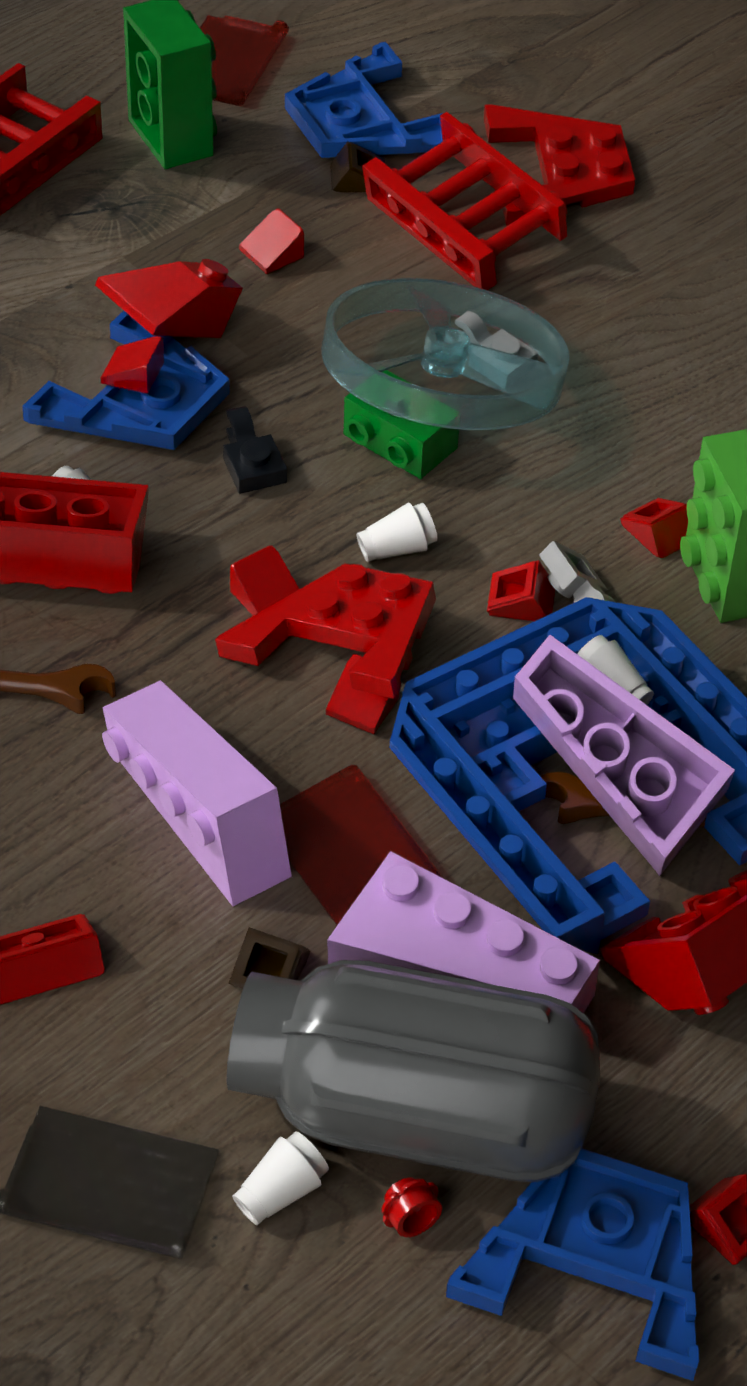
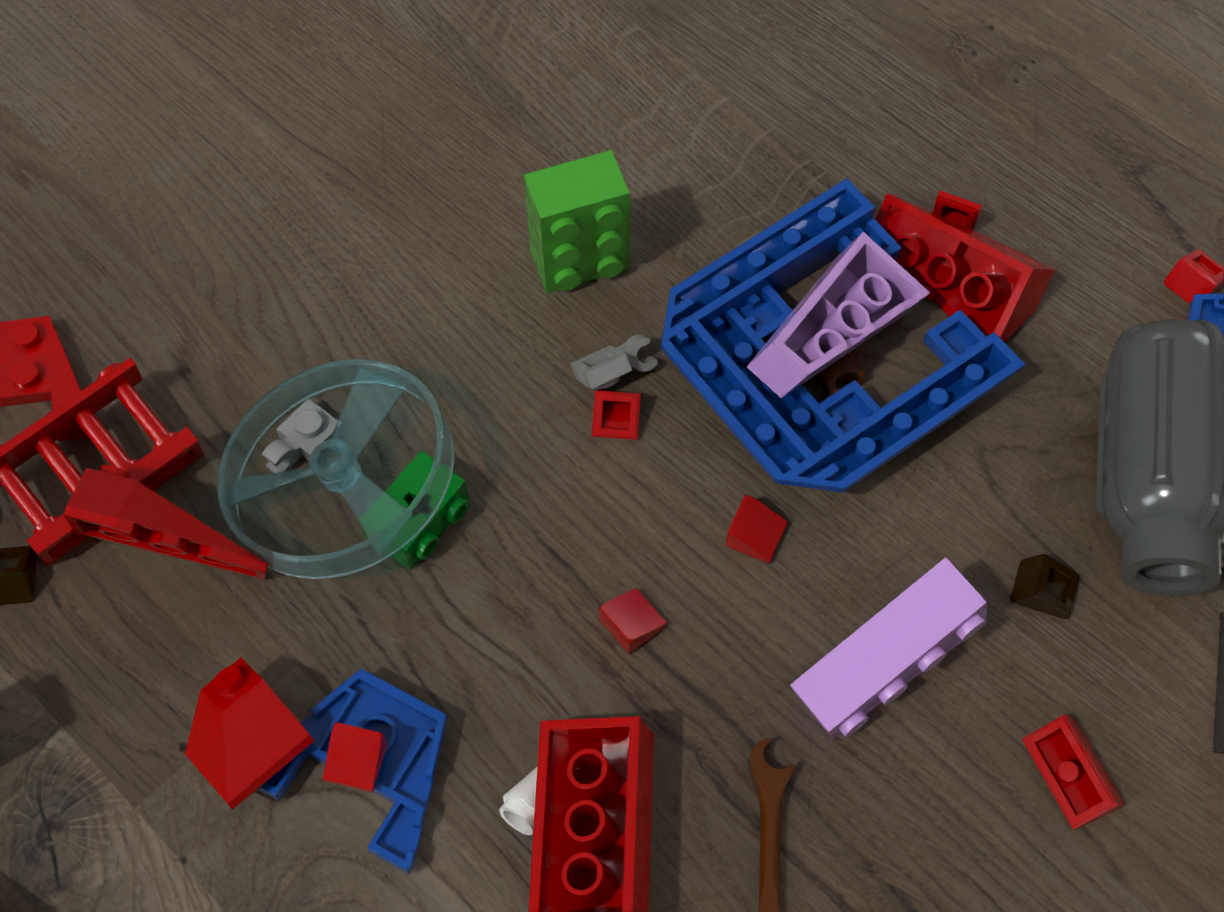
camera: 90 degrees left, 15 degrees up
(251, 459) = (459, 644): black plate -> none
(274, 242) = (131, 648): slope -> none
(341, 837) = (917, 529): clear red piece -> none
(346, 609) = (668, 532): red wing -> none
(388, 214) = (130, 514): none -> red wedge
(399, 533) = (560, 507): white cone -> none
(439, 928) = (1028, 452): lavender wedge -> none
(614, 663) = (757, 322): white cone -> none
(658, 525) = (523, 307): red slope -> none

